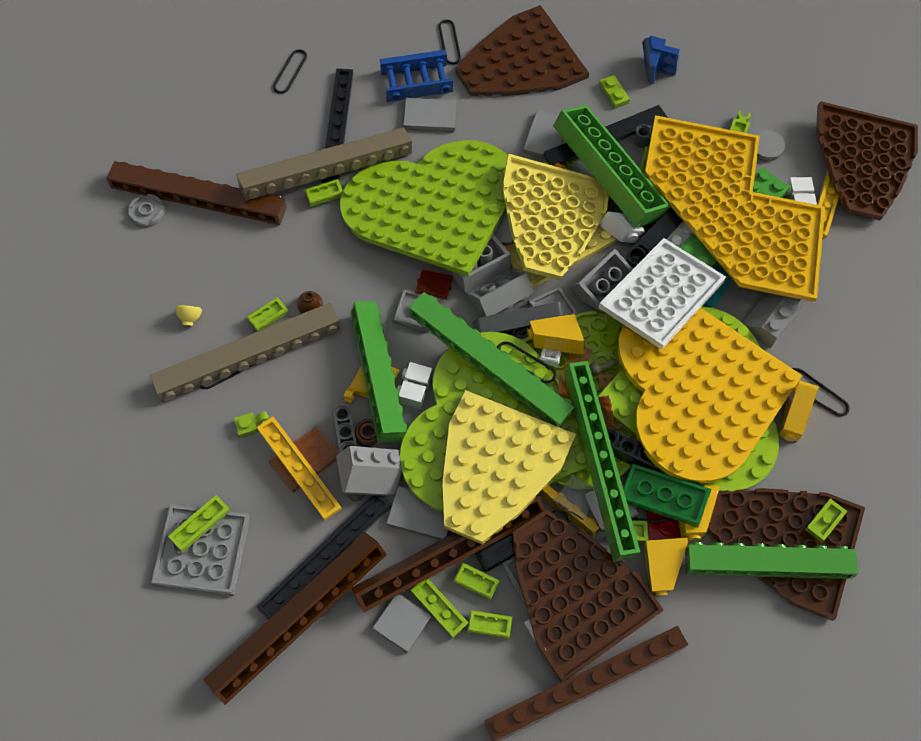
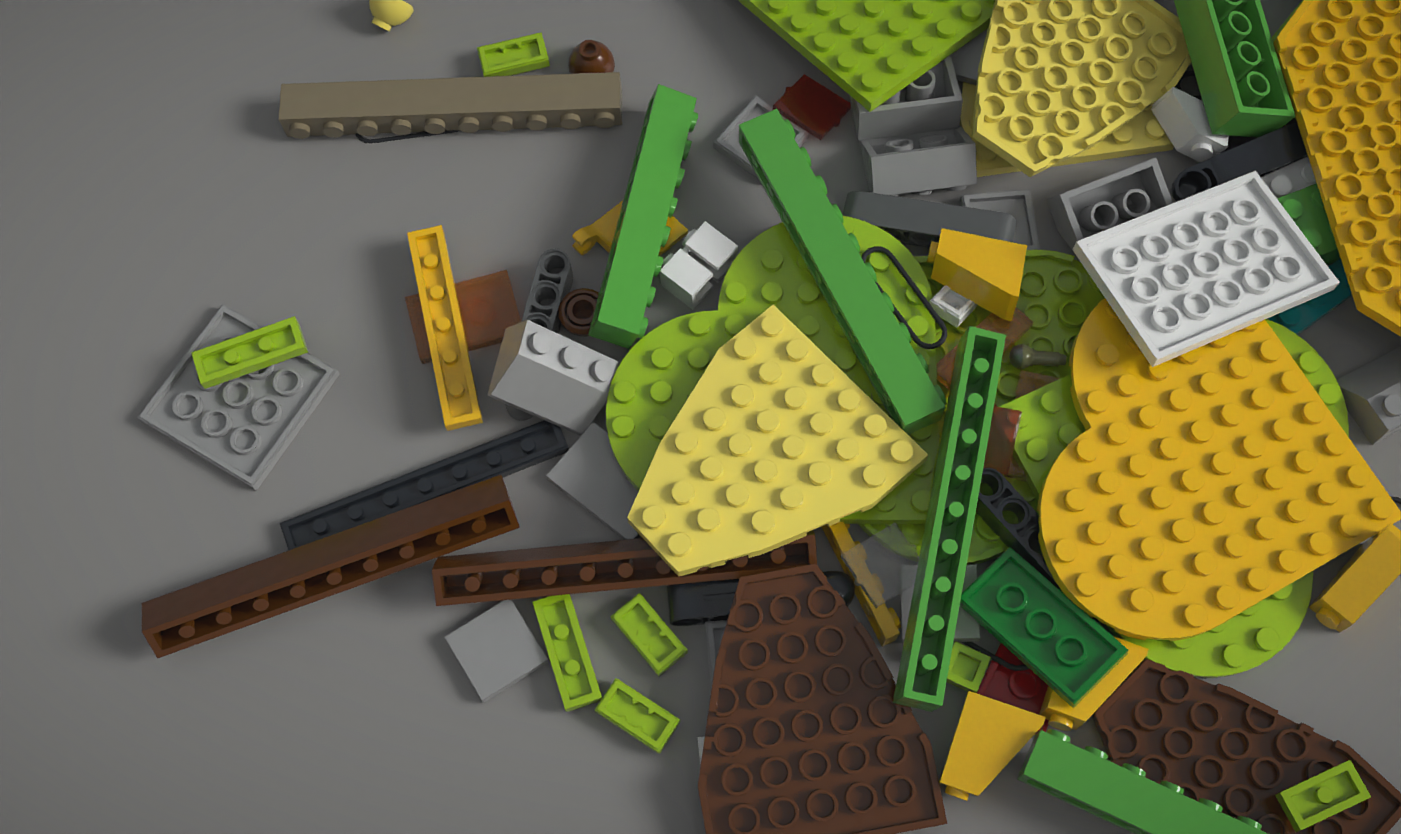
camera: 30 degrees right, 5 degrees up
(248, 423) = (400, 219): lime plate -> none

